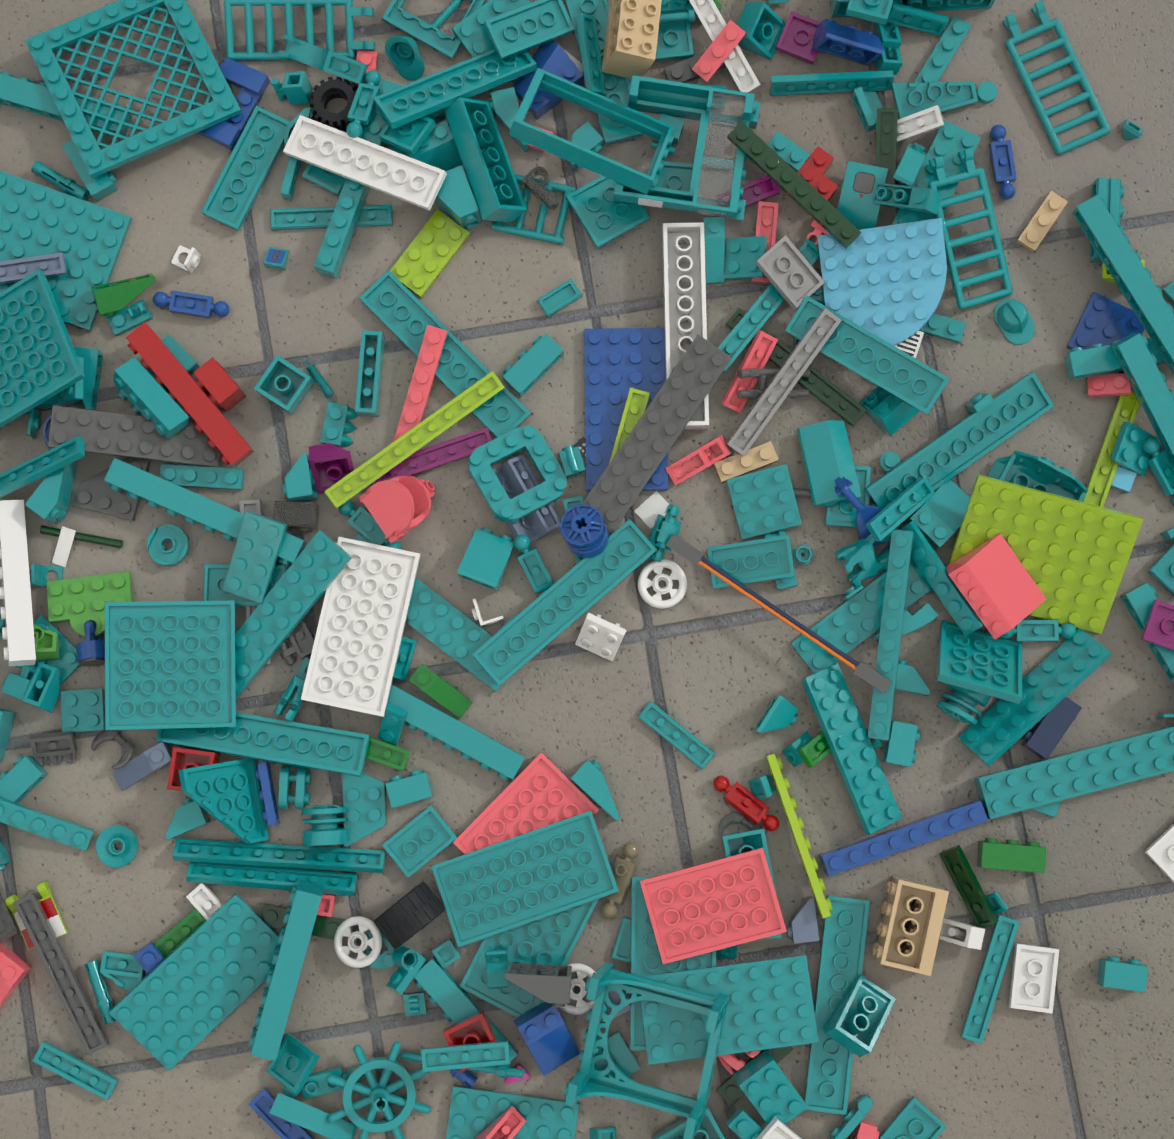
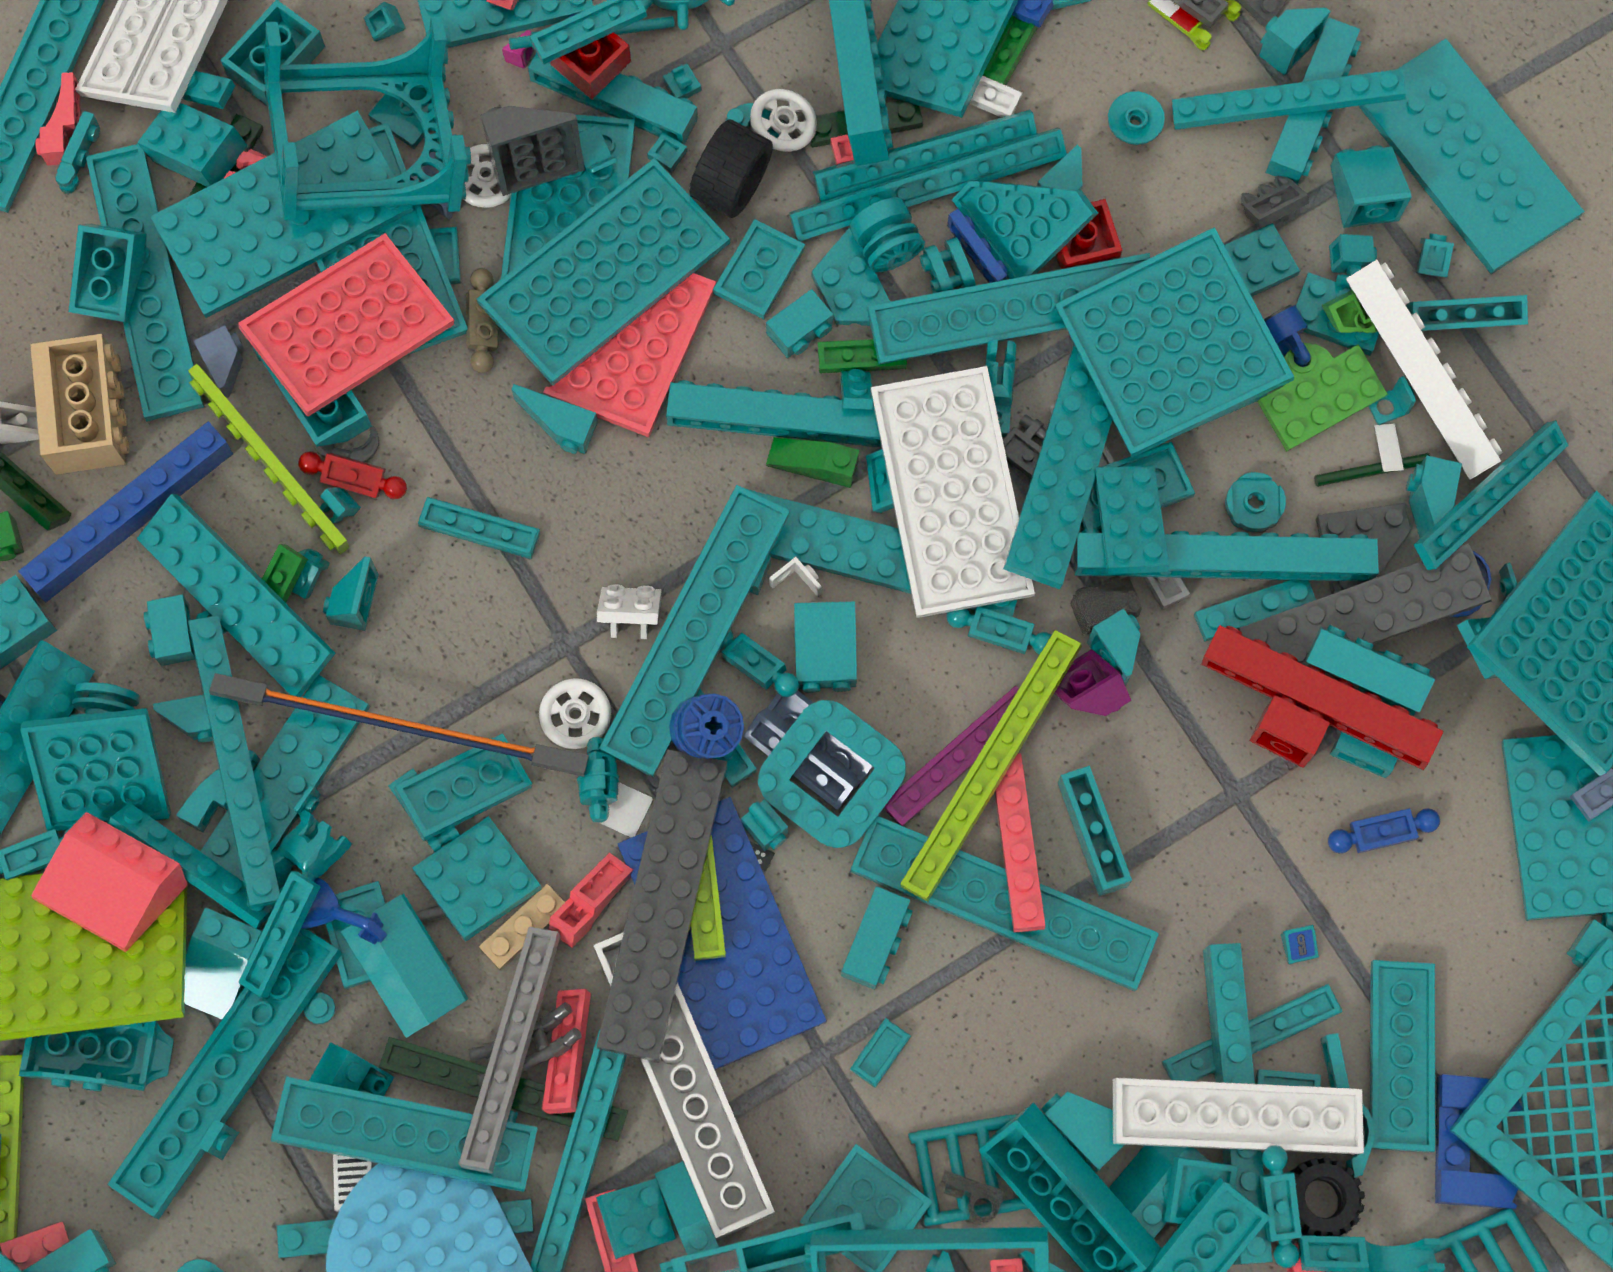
camera: 155 degrees right, 10 degrees down
(43, 688) = (1321, 259): teal slope -> none
(92, 370) = (1477, 694): teal slope -> none
(118, 294) = (1487, 801): green slope -> none
(127, 746) = (1181, 233): dark grey piece -> none
(129, 317) = (1458, 780): teal plate -> none
(143, 765) = (1150, 222): sand blue slope -> none
(191, 261) = (1411, 892): white bracket -> none
(284, 385) = (1203, 768): teal brick -> none
(295, 87) = (1391, 1199): teal brick -> none
(320, 381) = (1159, 799): teal piece -> none
(336, 425) = (1109, 749): teal plate -> none
(399, 504) = (974, 667): coral animal -> none
(407, 969) = (707, 111): teal plate -> none
(429, 253) = (1091, 1039): lime plate -> none
(546, 1037) = (497, 88): blue slope -> none
(789, 272) = (562, 1215): light grey plate -> none
(803, 549) = (395, 822): teal plate -> none

